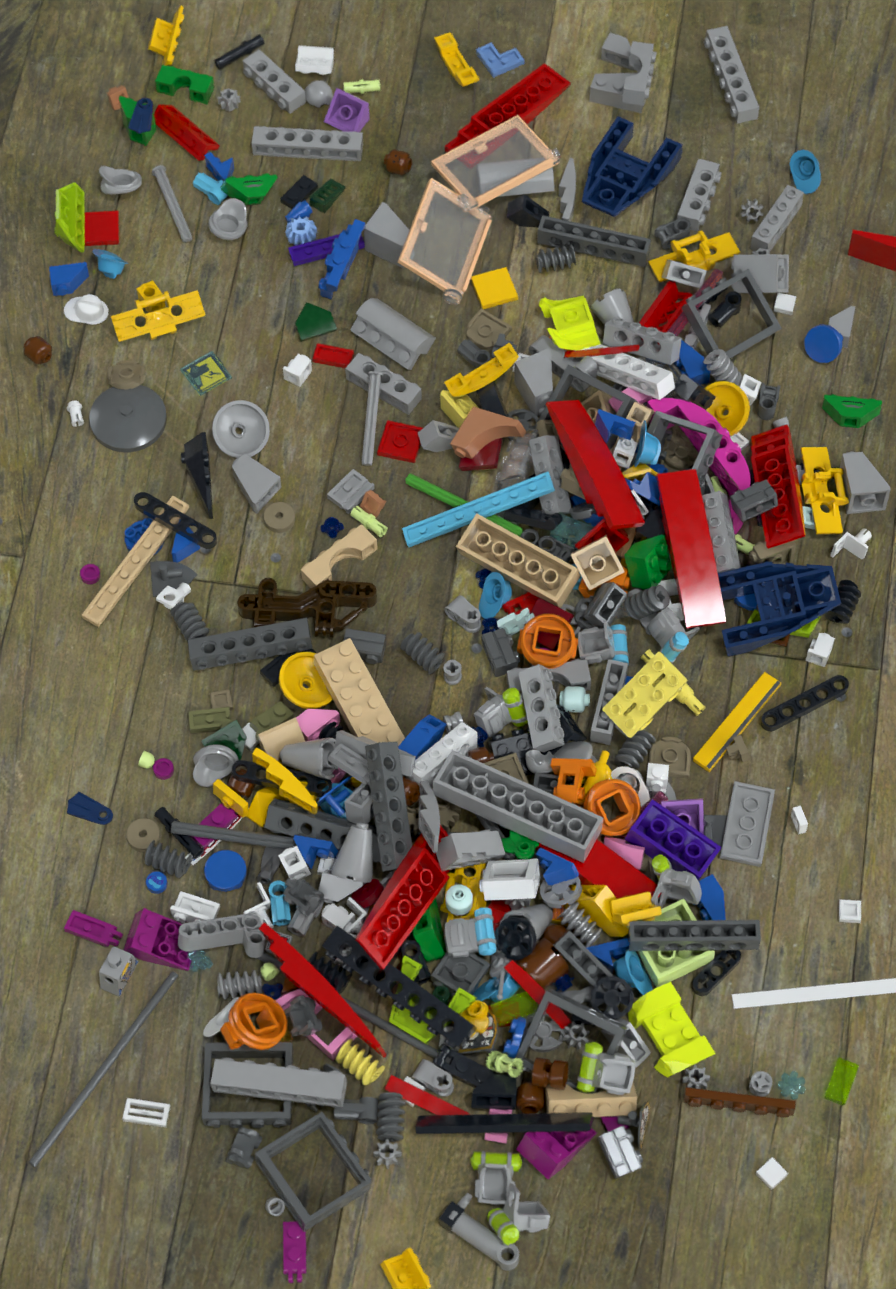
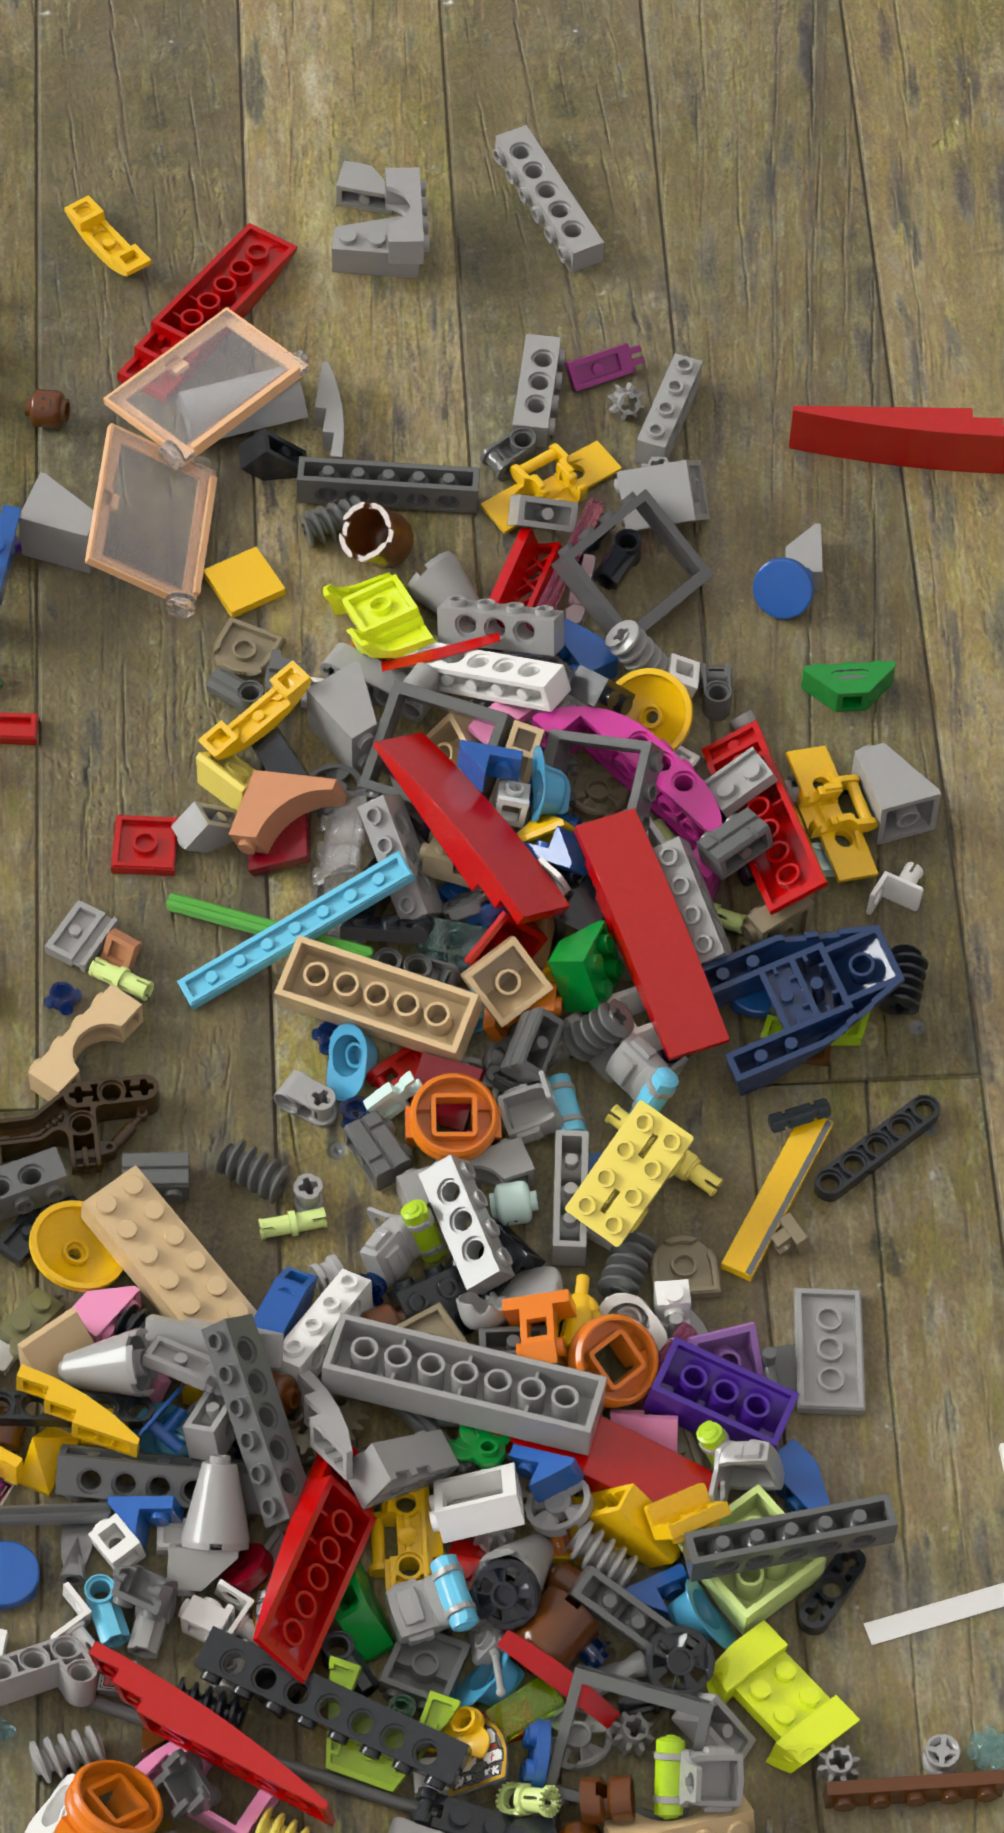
camera: 15 degrees left, 5 degrees down
(269, 971) = (111, 1724): yellowish green hinge -> none
(273, 988) = (129, 1750): clear blue plate -> none
(371, 417) = (91, 813): light grey axle -> none
(391, 332) = (94, 677): light grey brick -> none
(404, 401) = (110, 770): light grey brick -> none
(439, 688) = (292, 1223): none -> yellowish green pin
(459, 899) = (400, 1550): light aqua head -> none
(499, 63) = (173, 233): medium blue tile -> none
(546, 427) = (380, 784): dark tan tile -> none
(578, 272) = (376, 535): none -> reddish brown cylinder
(621, 179) = (411, 383): dark blue wedge -> none
(742, 185) = (602, 366): none -> magenta hinge
(760, 675) = (799, 1115): none -> black axle
(767, 462) = (740, 781): none -> light grey plate
(784, 303) = (708, 537): white tile -> none
(799, 820) = (909, 1330): white tile -> none
(805, 171) = (696, 329): dark azure piece -> none
(820, 649) = (883, 1060): white brick -> none

